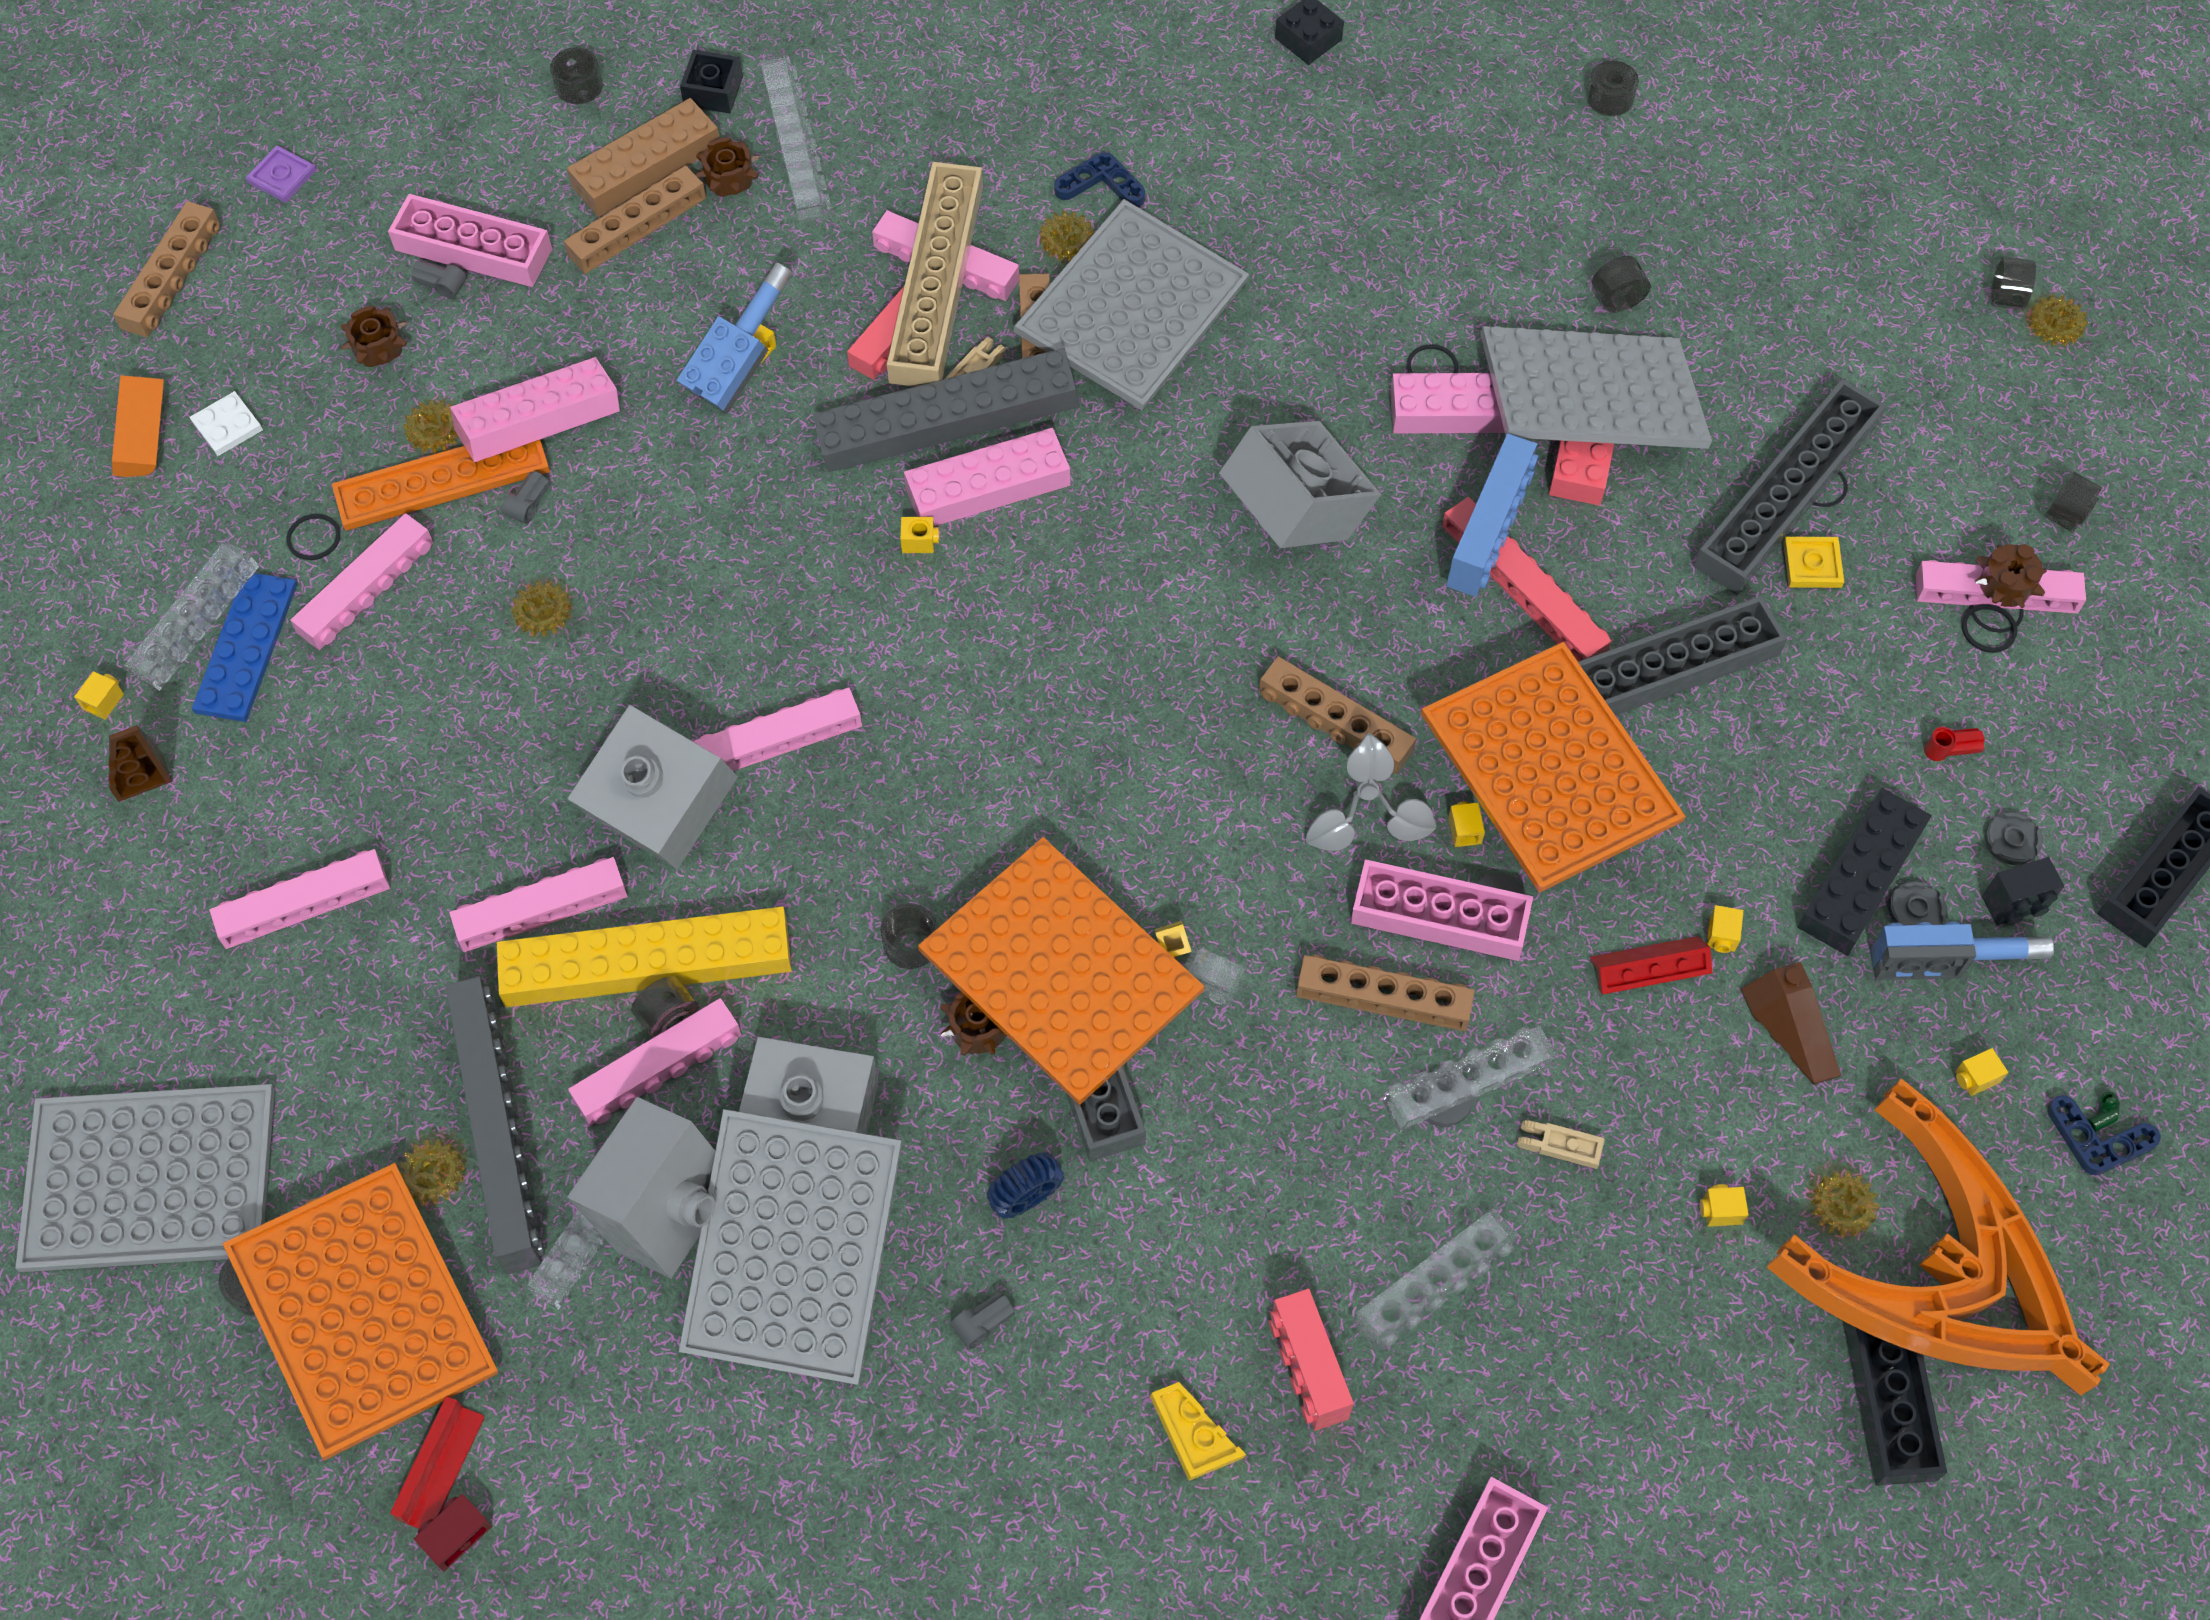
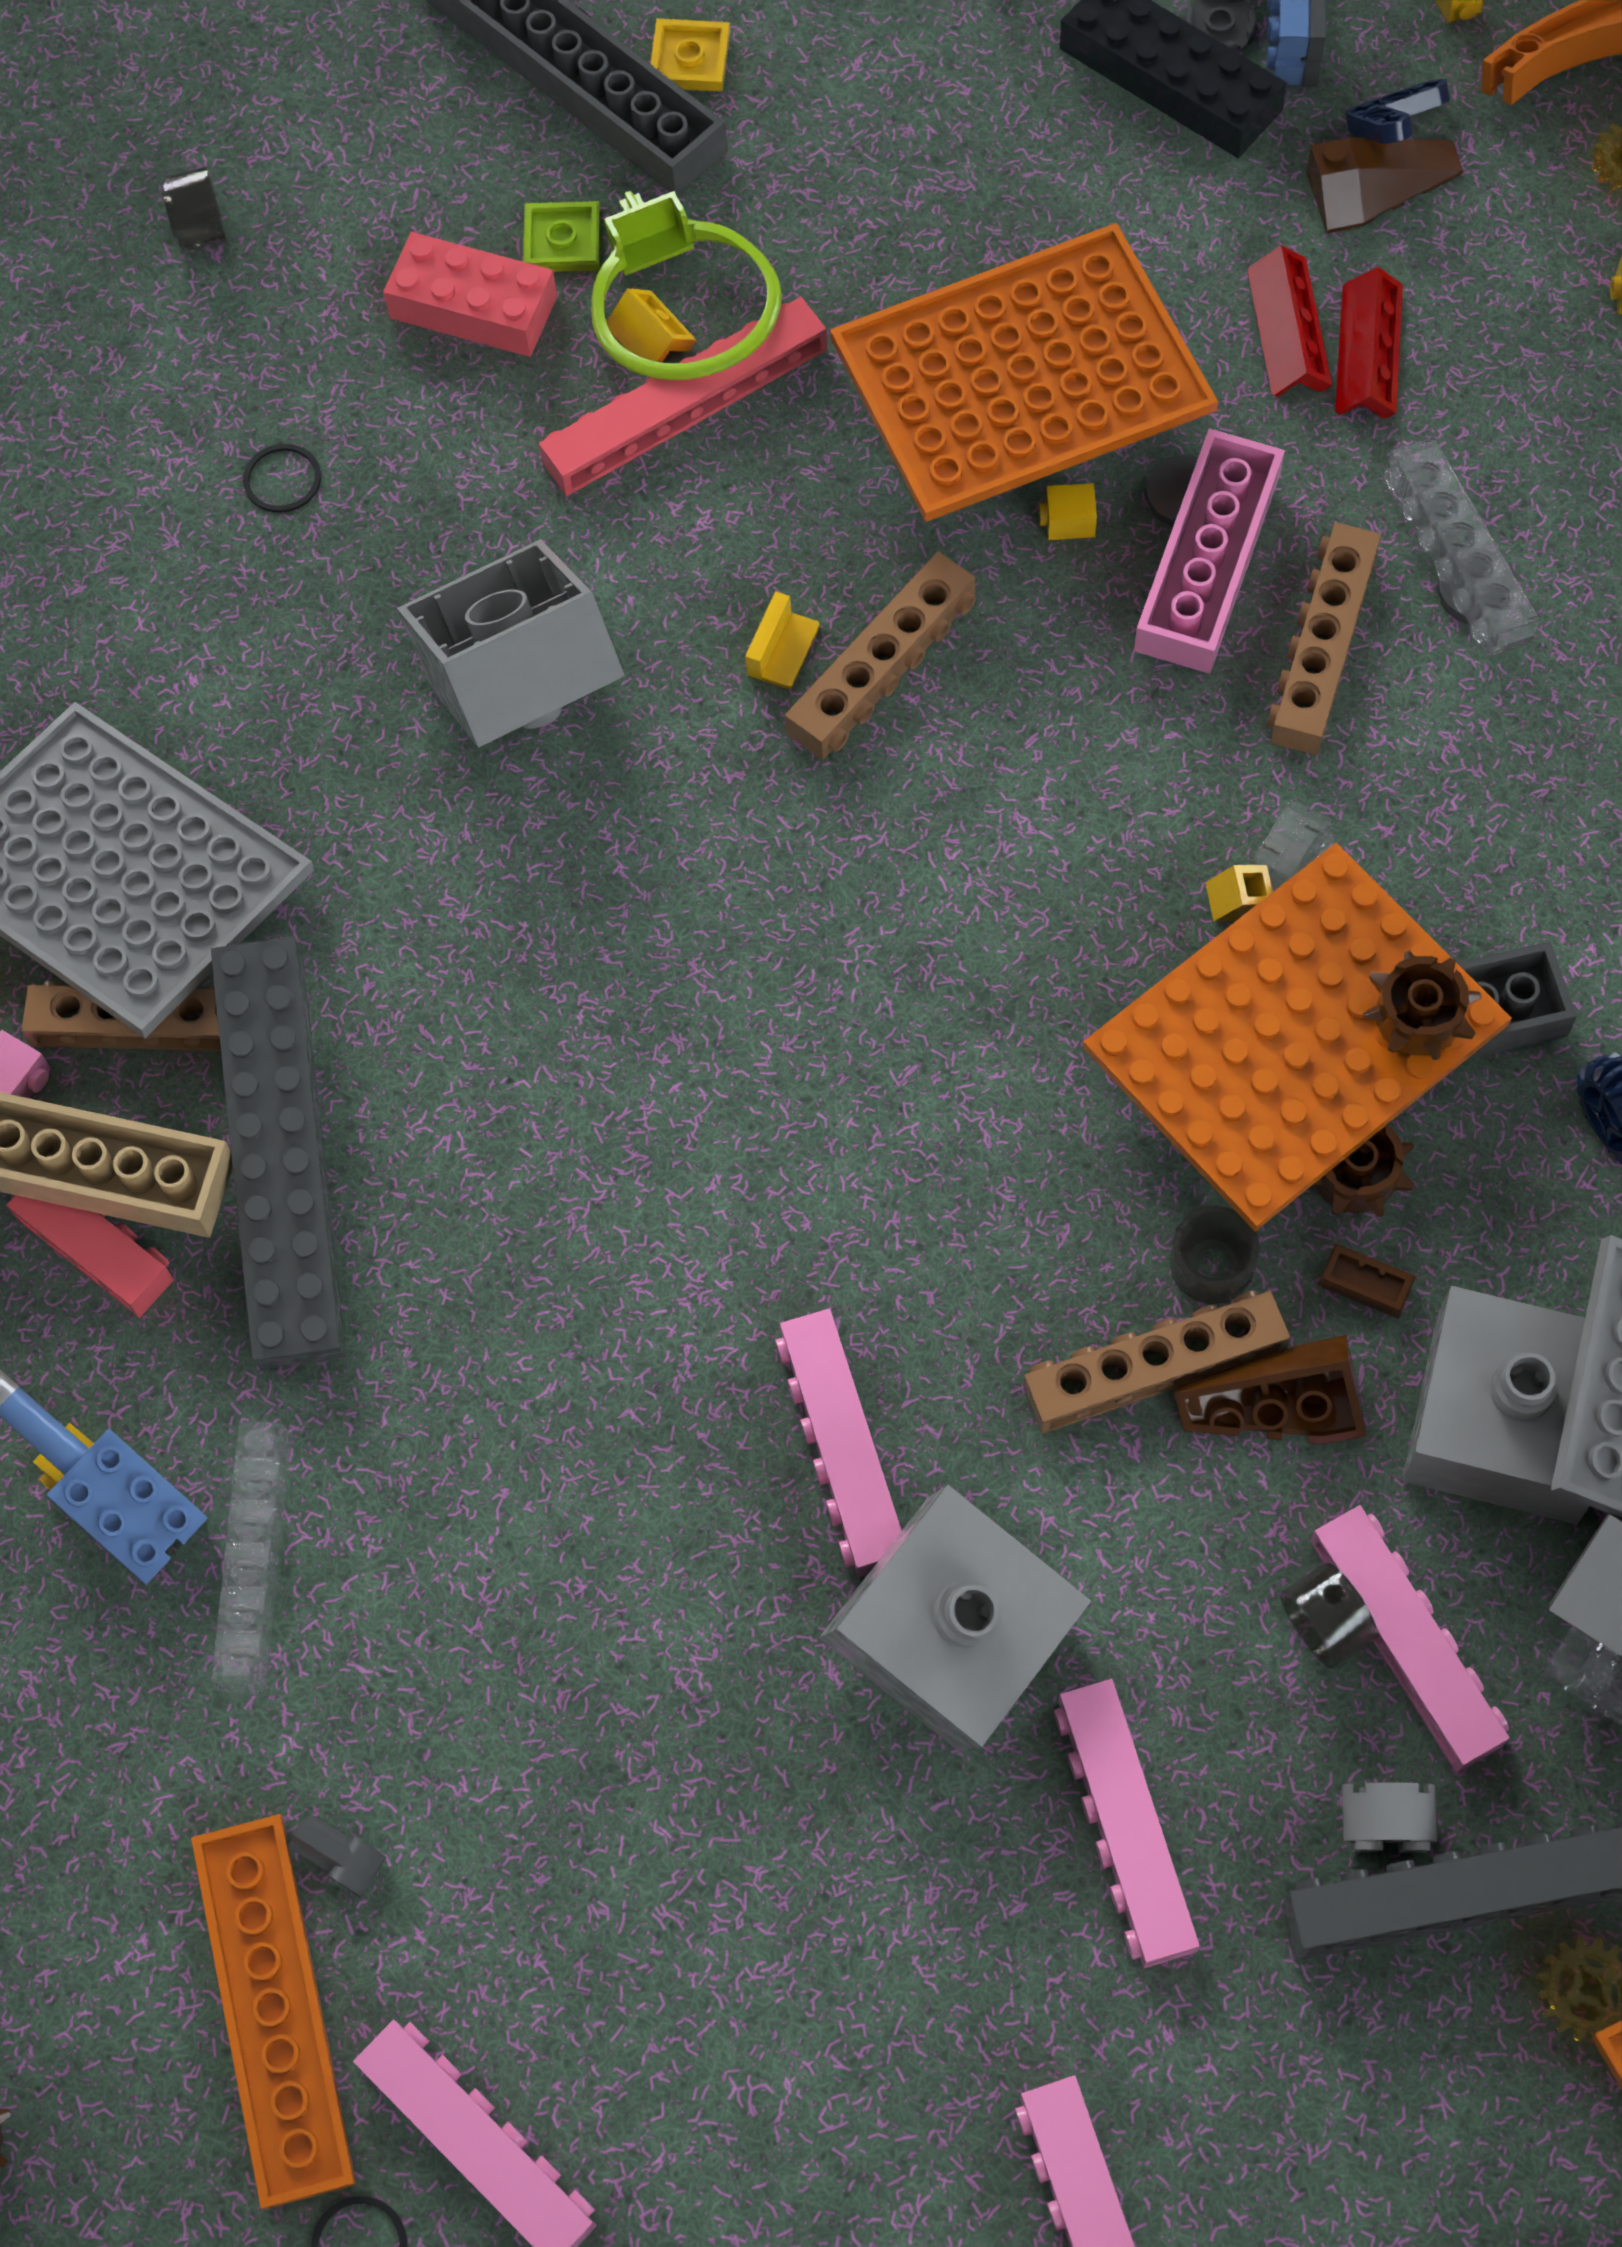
camera: 80 degrees left, 5 degrees up
(431, 425) = (146, 2037): clear yellow gear -> none
(535, 409) = (168, 1831): bright pink brick -> none
(536, 1047) = (1389, 1816): none -> light grey brick
(543, 610) = (547, 1817): clear yellow gear -> none
(641, 954) = (1231, 1657): yellow brick -> none
(697, 434) = (251, 1559): none -> clear brick
(822, 992) = (1291, 1392): none -> reddish brown wedge
(858, 970) = (1057, 1408): none -> medium nougat brick
(899, 1033) = (1366, 1280): none -> reddish brown plate
(915, 526) = (502, 1231): yellow brick -> none
(978, 358) = (178, 1109): tan hinge -> none
(988, 477) = (406, 1106): bright pink brick -> none
(1072, 1044) = (1427, 1027): none -> reddish brown brick
(1341, 656) = (780, 644): none -> yellow panel
(1367, 766) = (1004, 588): light grey plant -> none
(1444, 403) = (366, 429): bright pink brick -> none
(1493, 516) = (595, 400): medium blue brick -> none
(1563, 1143) = (1549, 452): tan hinge -> none
(1580, 559) = (648, 326): none -> yellow panel
(1594, 387) = (381, 260): light grey plate -> none
(1641, 1020) = (1369, 343): none -> red panel
(1645, 542) = (655, 233): none -> lime brick
(1647, 502) = (562, 235): none -> lime tile
(1686, 655) = (829, 212): dark grey brick -> none
(1725, 929) = (1247, 231): yellow brick -> none
(1843, 1009) = (1388, 117): none -> dark blue beam

